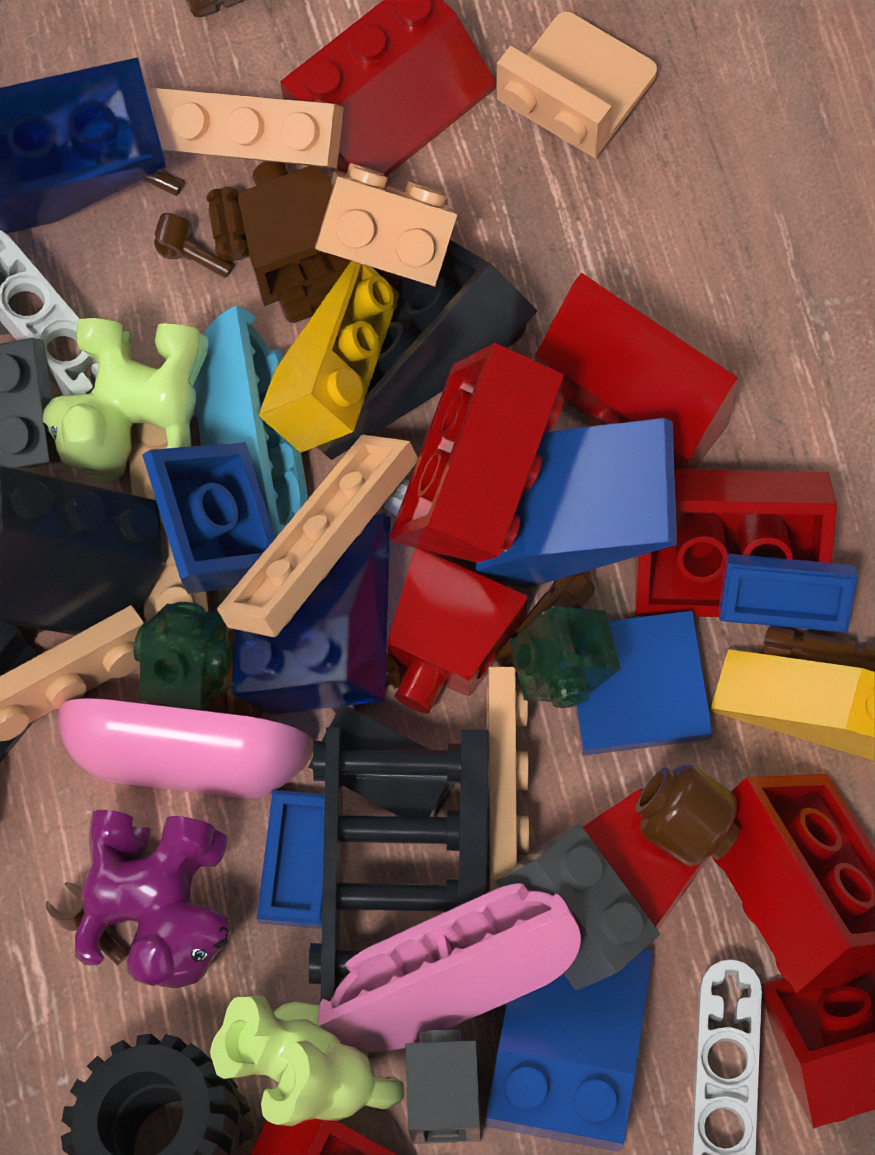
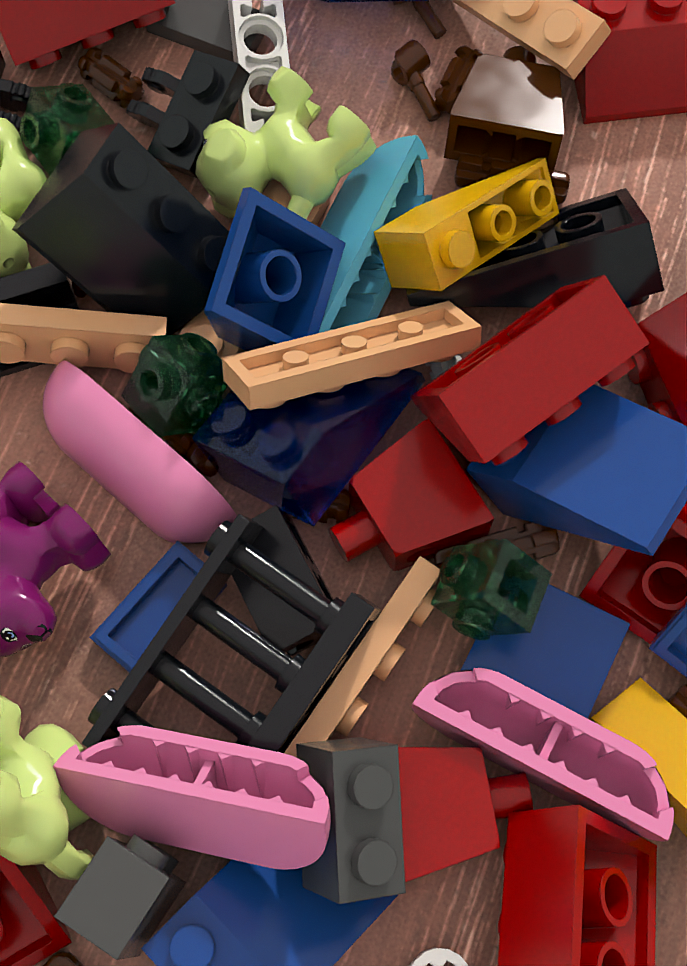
camera: 30 degrees right, 0 degrees up
(385, 225) = (580, 143): light nougat bracket -> none
(688, 815) = (502, 803): reddish brown head -> none
(718, 740) = (551, 746): none -> bright pink brick

